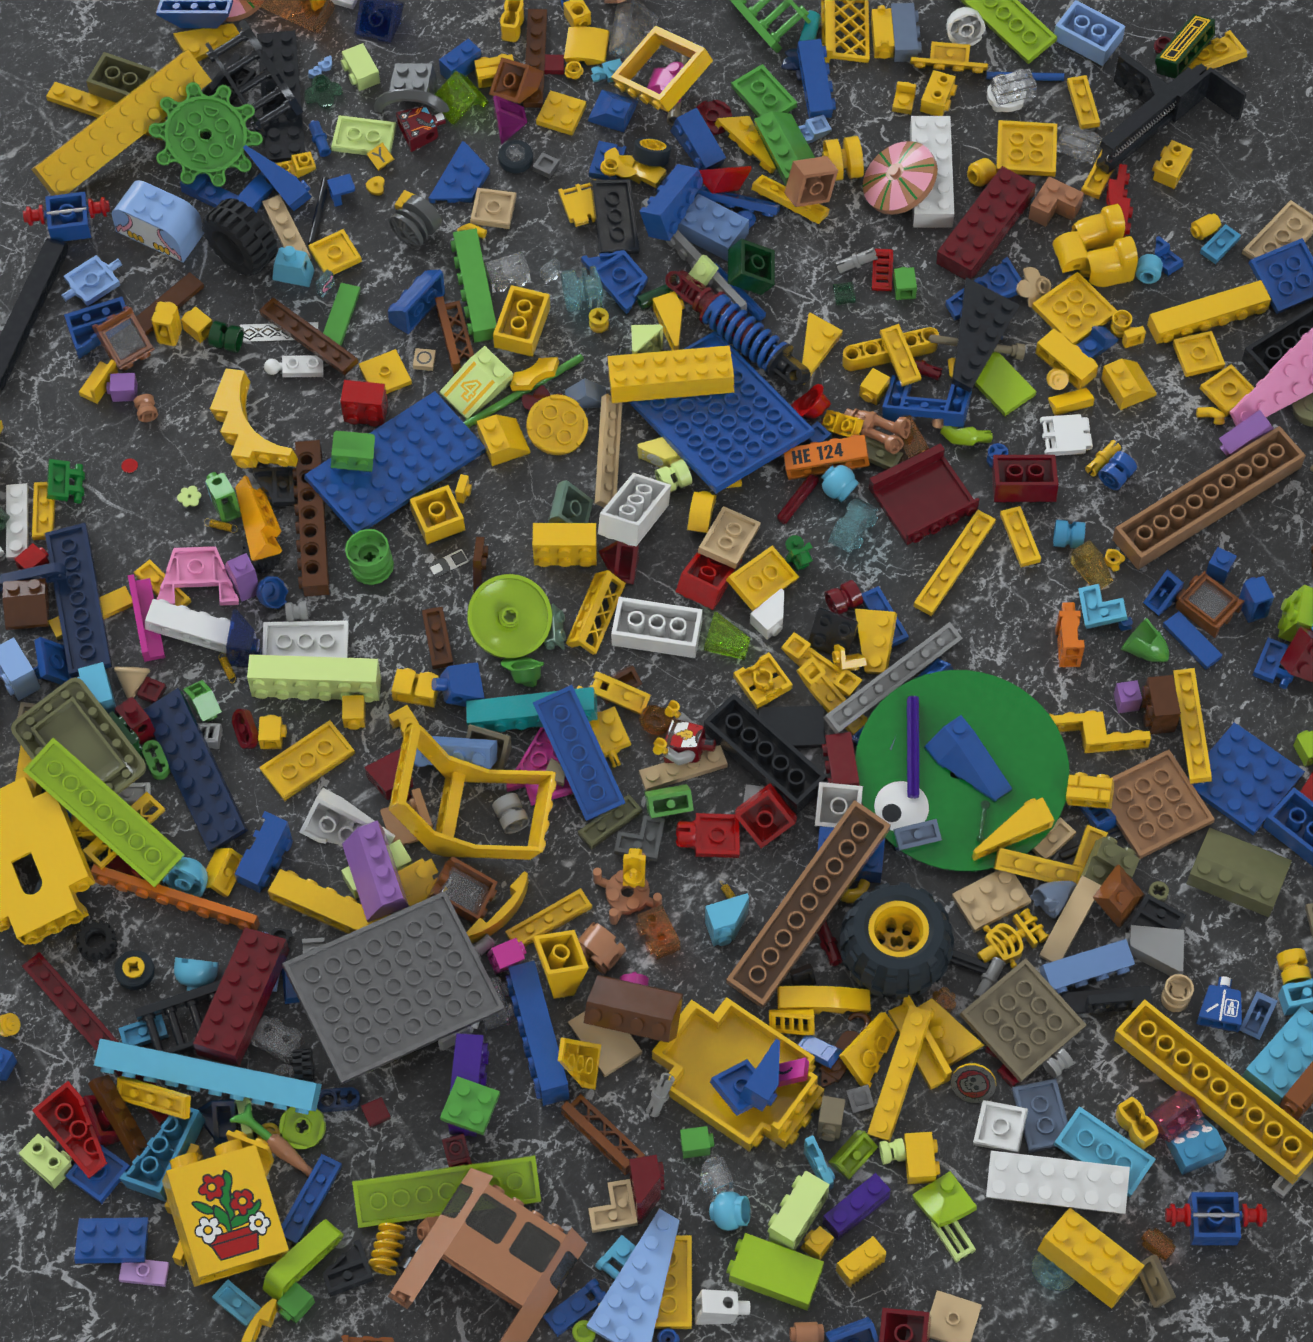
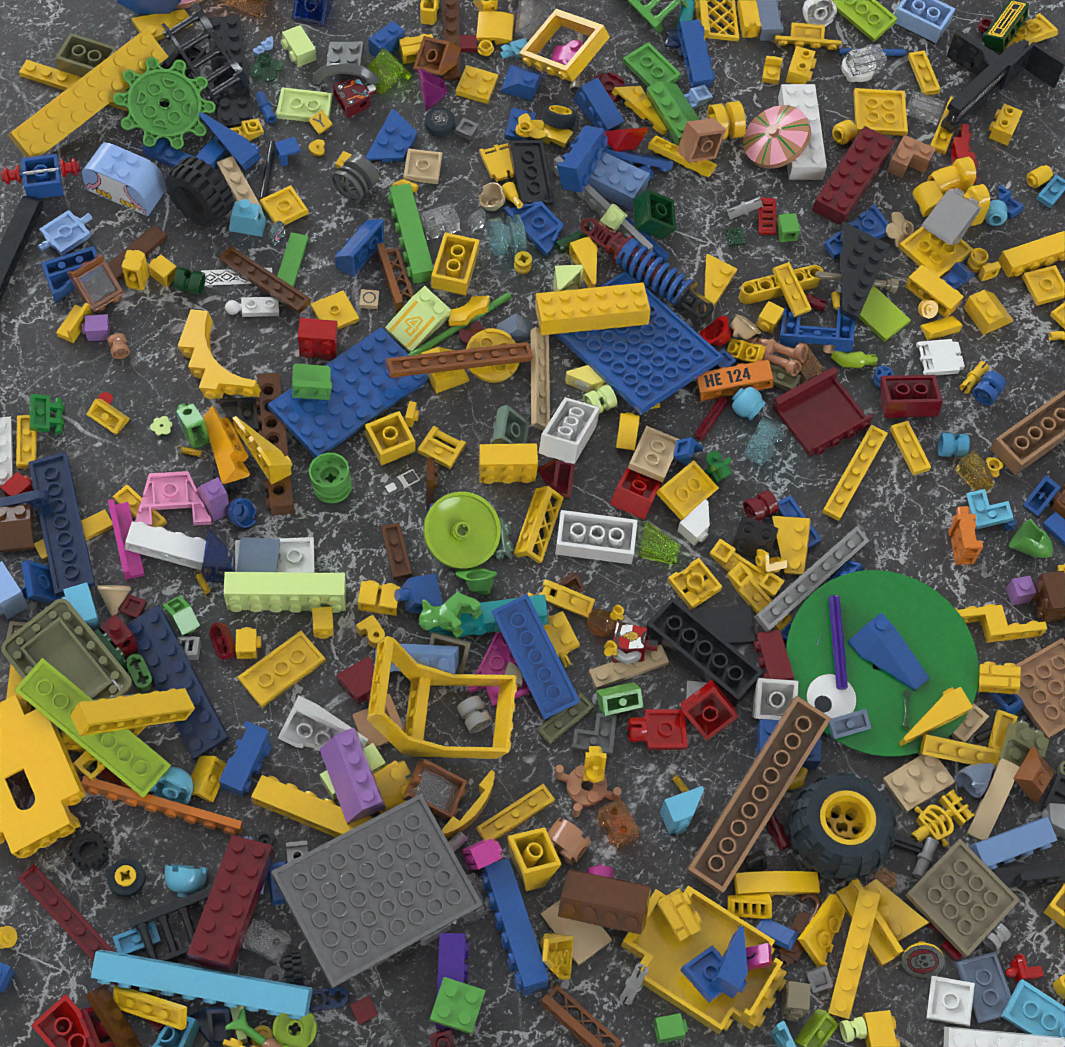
camera: 10 degrees left, 0 degrees up
(131, 484) = (107, 416): none -> yellow slope
(145, 796) = (131, 711): none -> yellow brick
(287, 637) = (258, 555): none -> sand blue tile
(296, 612) = (264, 530): light grey wheel -> none
(302, 531) = (268, 456): none -> yellow wedge
(487, 705) = (449, 613): none -> bright green animal
(490, 529) = (439, 451): none -> yellow plate
(517, 429) = (458, 359): none -> dark orange plate
(569, 244) = (492, 197): none -> tan hair
(589, 239) = (511, 194): none -> yellow cone
(714, 1025) = (680, 914): none -> yellow brick
(764, 532) = (685, 448): none -> blue panel
(842, 397) = (743, 328): none -> tan piece
(1080, 1098) = (1020, 970): none -> red piece
(1091, 274) = (952, 216): none -> light grey slope

